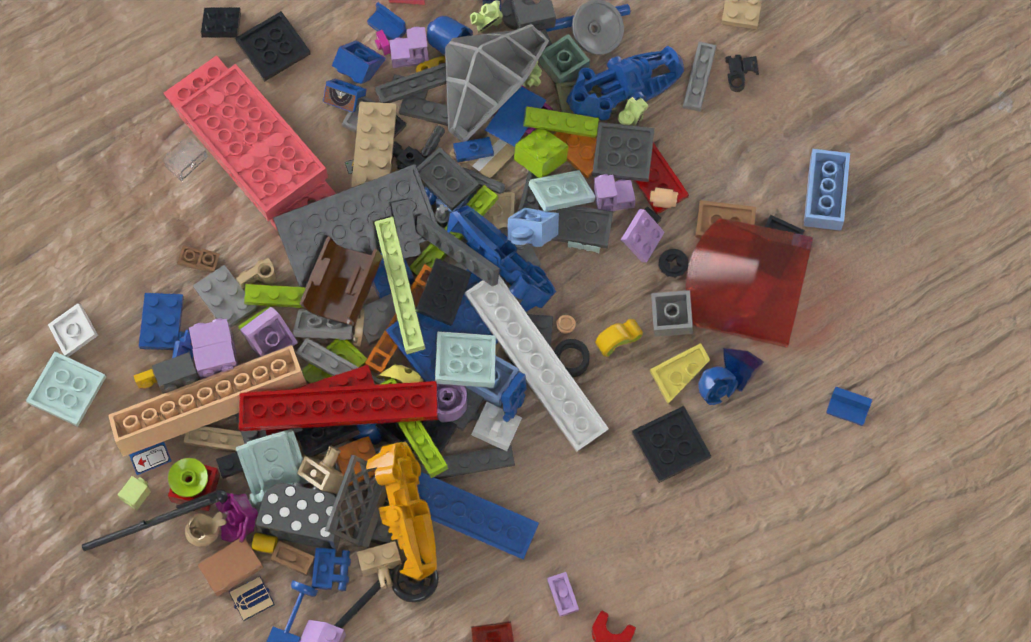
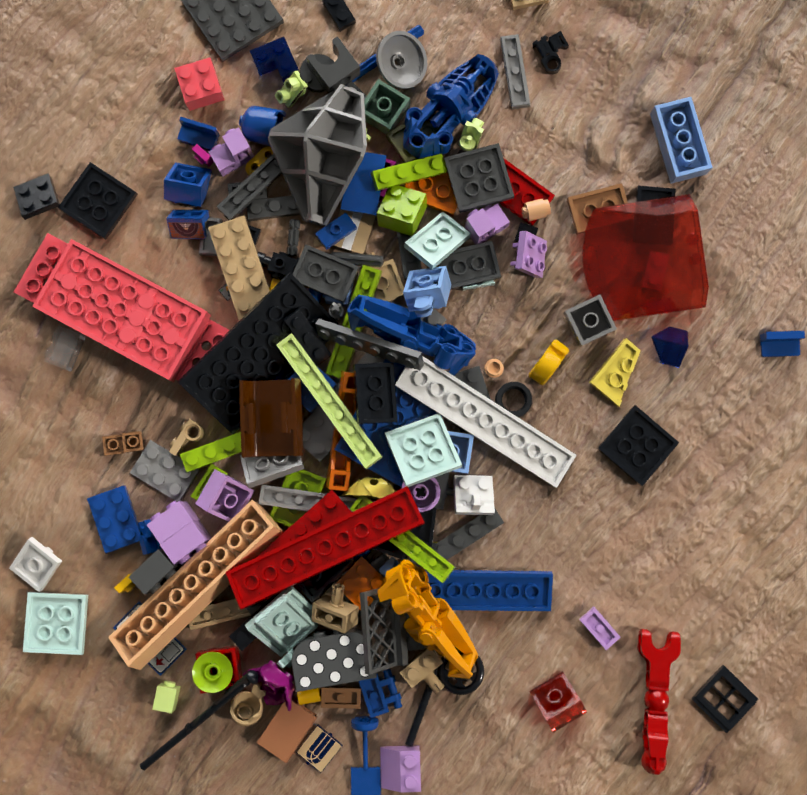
camera: 25 degrees left, 15 degrees up
(358, 330) = (307, 457): tan tile -> none
(514, 396) = (480, 464): blue plate -> none
(669, 256) = (573, 262): black gear -> none
(716, 383) = (656, 371): blue cylinder -> none

